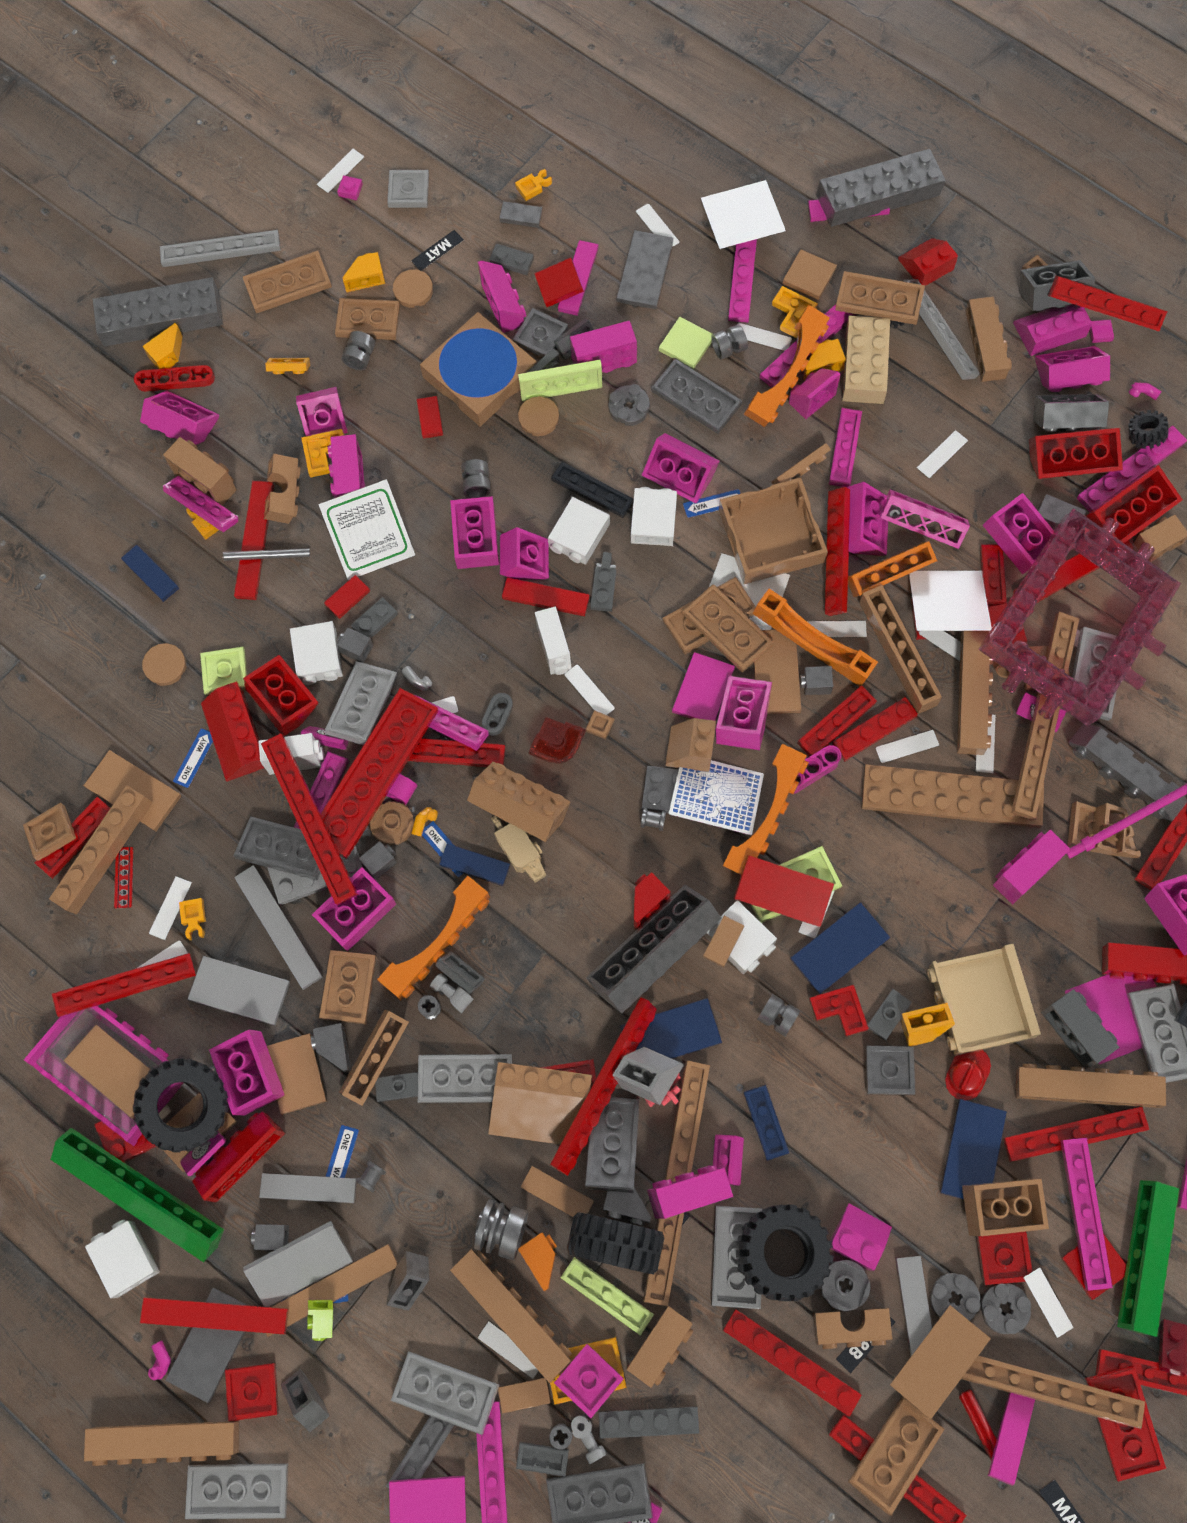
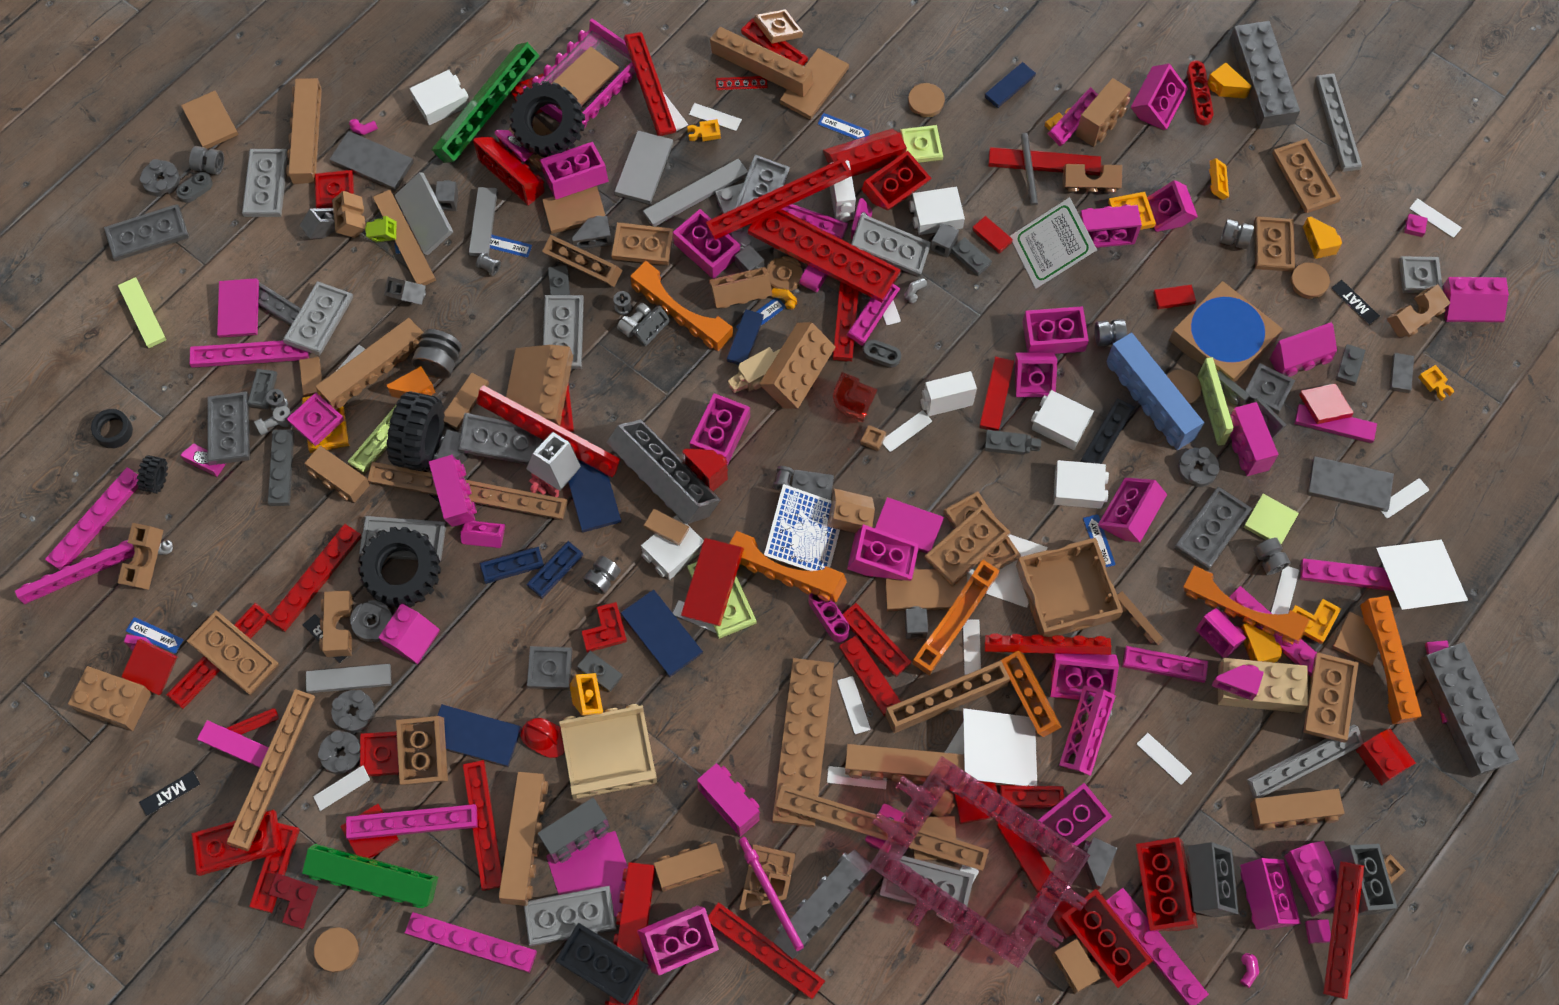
camera: 85 degrees right, 5 degrees down
(214, 1315) = (391, 160): red tile -> none
(297, 1366) = (348, 214): none -> medium nougat brick
(414, 868) = (741, 287): none -> medium nougat brick
(440, 141) = (1476, 299): none -> dark pink slope
(446, 180) = (1430, 303): none -> medium nougat arch
(549, 437) = (1154, 391): none -> medium blue brick
(597, 887) = (721, 426): none -> dark pink brick
(769, 1072) = (555, 569): none -> dark blue tile
(874, 369) = (1240, 681): none -> dark pink slope
(875, 240) = (1401, 694): none -> orange arch
(940, 1362) = (301, 689): medium nougat tile -> none
(1101, 908) = (689, 866): none -> medium nougat brick
(1148, 420) = (1192, 970): black tyre -> none

